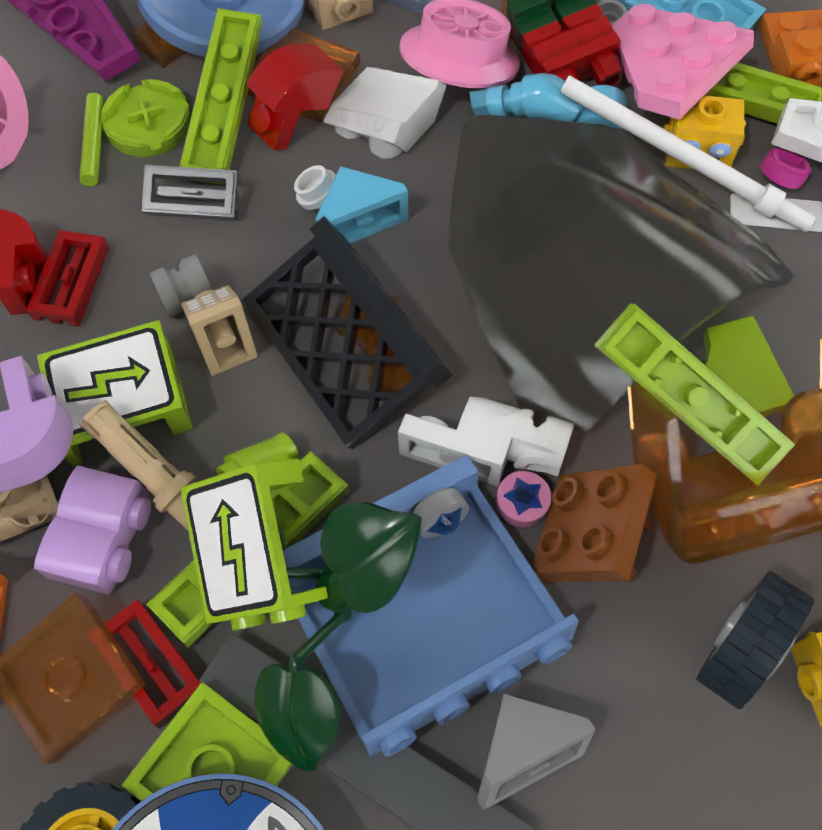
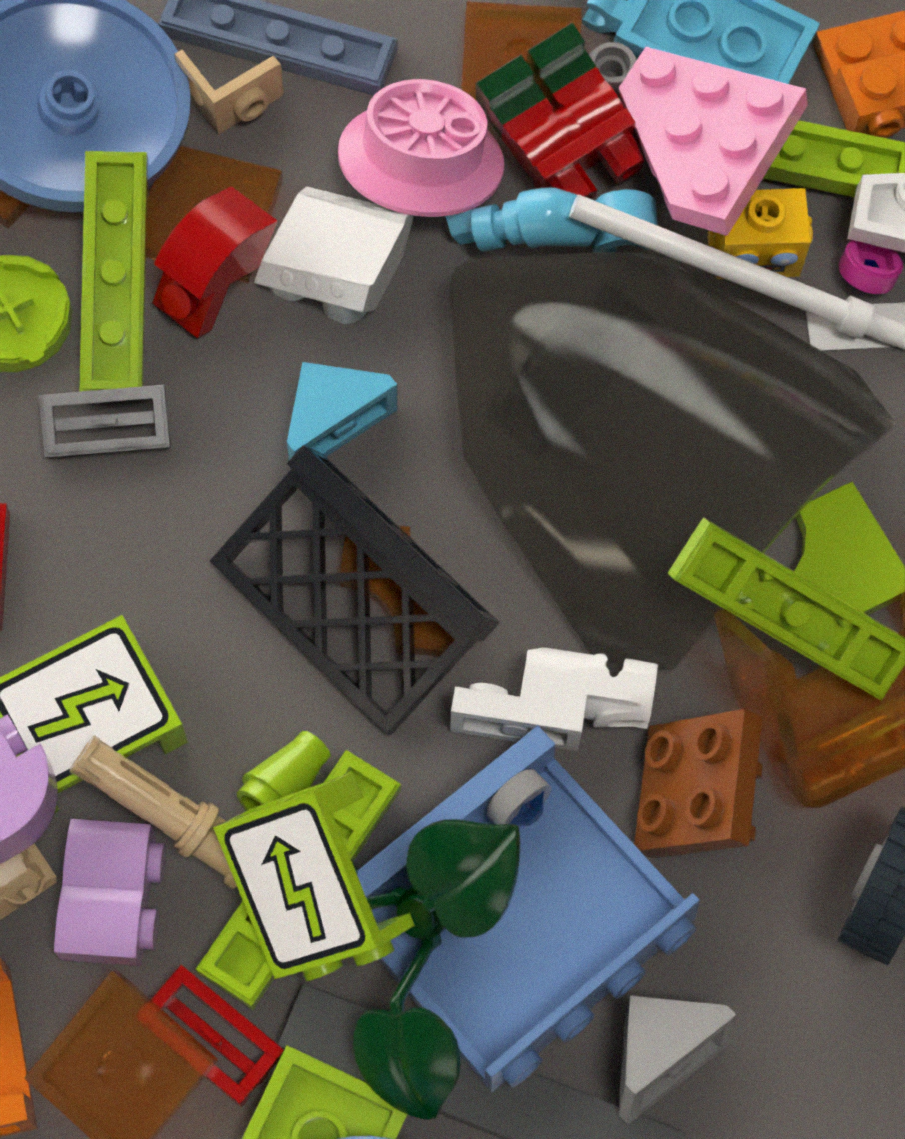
camera: 15 degrees left, 5 degrees up
(180, 286) = (129, 558): light grey wheel -> none
(220, 329) = (195, 607): tan slope -> none
(313, 186) = (270, 389): white plate -> none
(523, 499) = (610, 763): bright pink tile -> none

